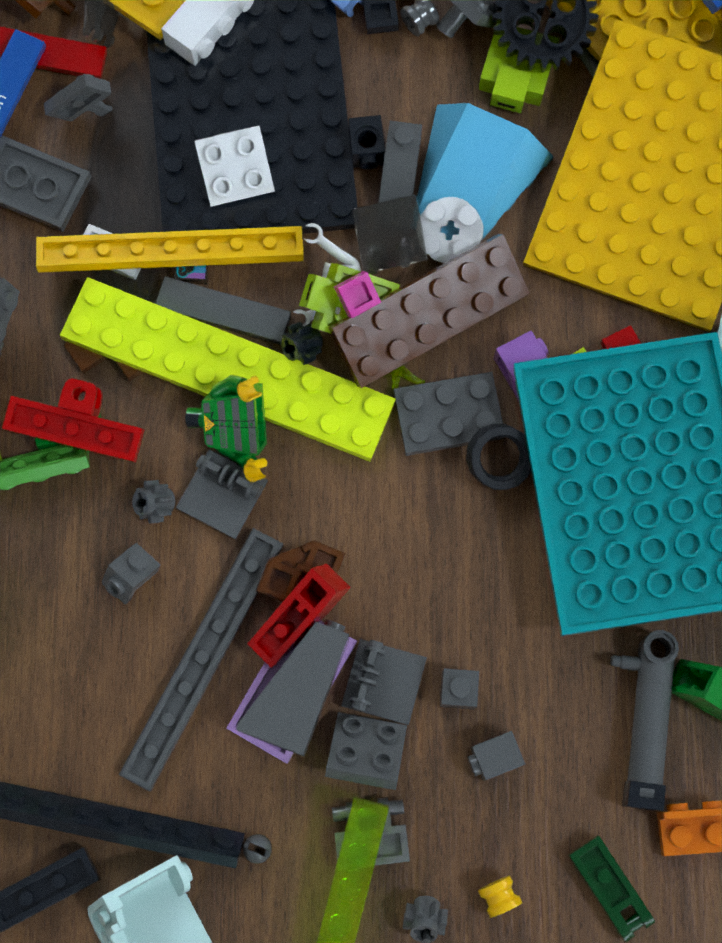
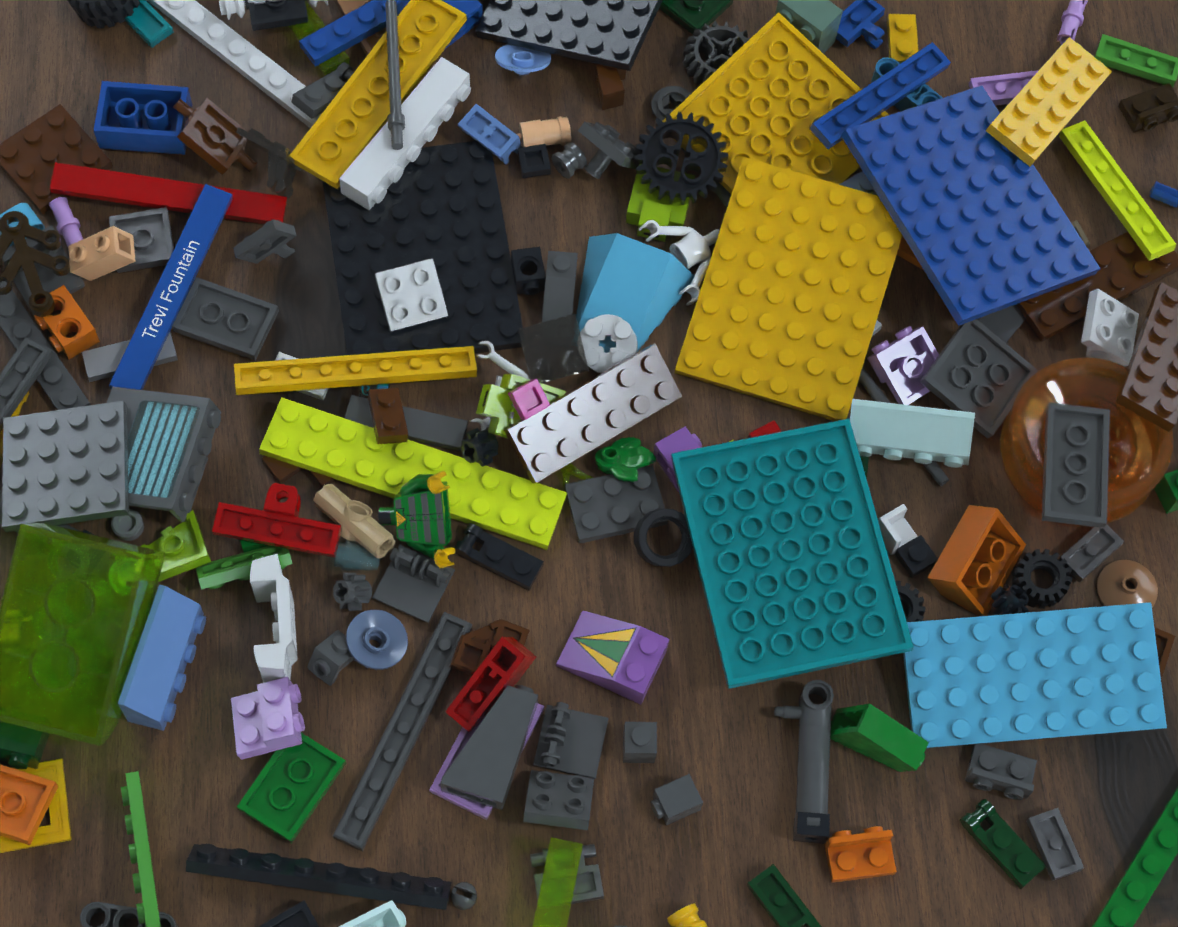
camera: 10 degrees left, 10 degrees down
(53, 641) = (267, 718): none -> lavender plate
(64, 488) = (270, 585): none -> white plate
(76, 716) = (291, 787): none -> green plate
(159, 421) = (354, 520): none -> tan piece
(159, 462) = (354, 557): none -> clear light blue cone
(188, 545) = (384, 629): none -> sand blue dish
(202, 303) = (387, 415): none -> reddish brown plate
(317, 468) = (499, 557): none -> black plate
(436, 586) = (614, 655): none -> medium lavender slope
(461, 362) = (624, 458): none -> green plate
(547, 126) = (689, 251): none -> white piece

